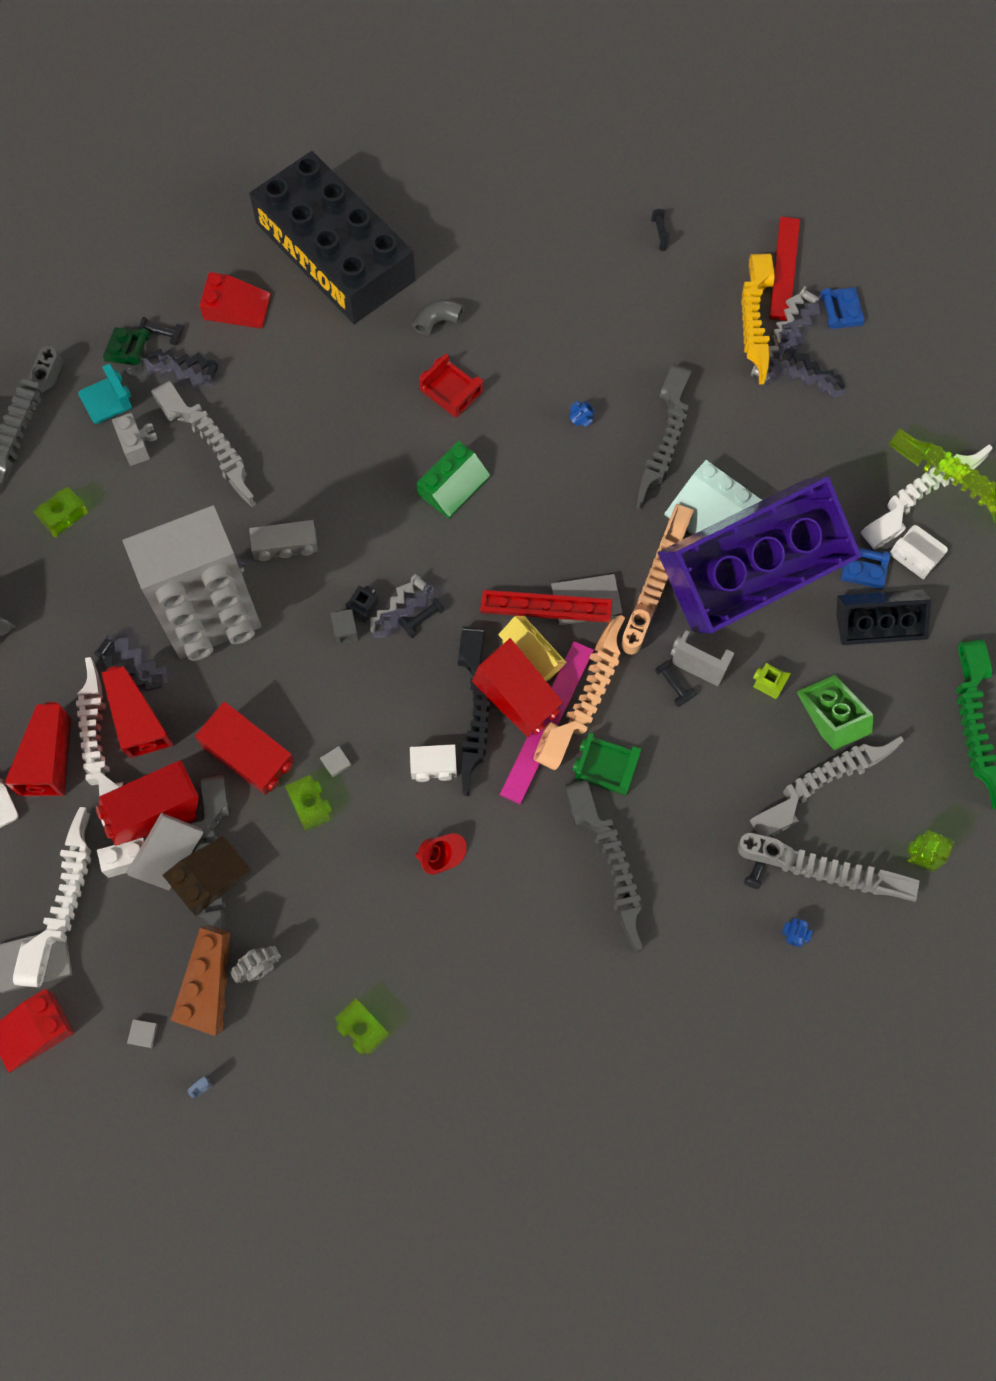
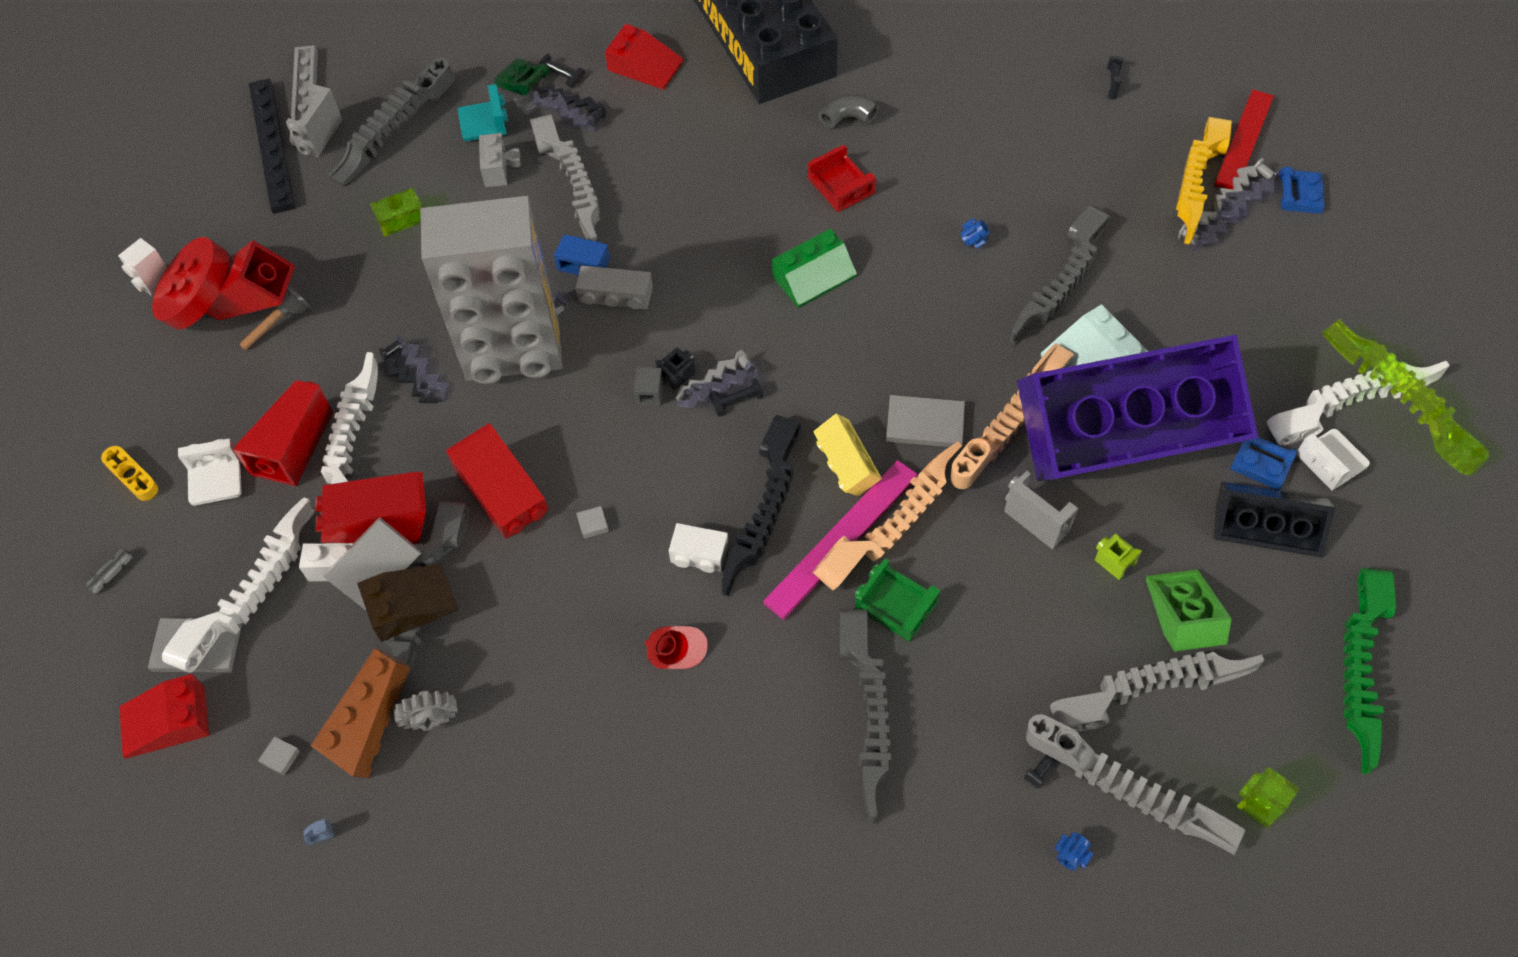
camera: 20 degrees right, 10 degrees down
(133, 717) = (392, 420): red slope -> none
(242, 515) = (579, 252): none -> blue brick
(309, 815) = (544, 542): clear neon green brick -> none
(355, 1014) = (517, 800): clear neon green brick -> none
(517, 689) = (815, 488): red slope -> none
(546, 606) = (878, 415): red plate -> none
(684, 695) = (1008, 548): black piece -> none
(819, 377) = (1256, 252): piece -> none

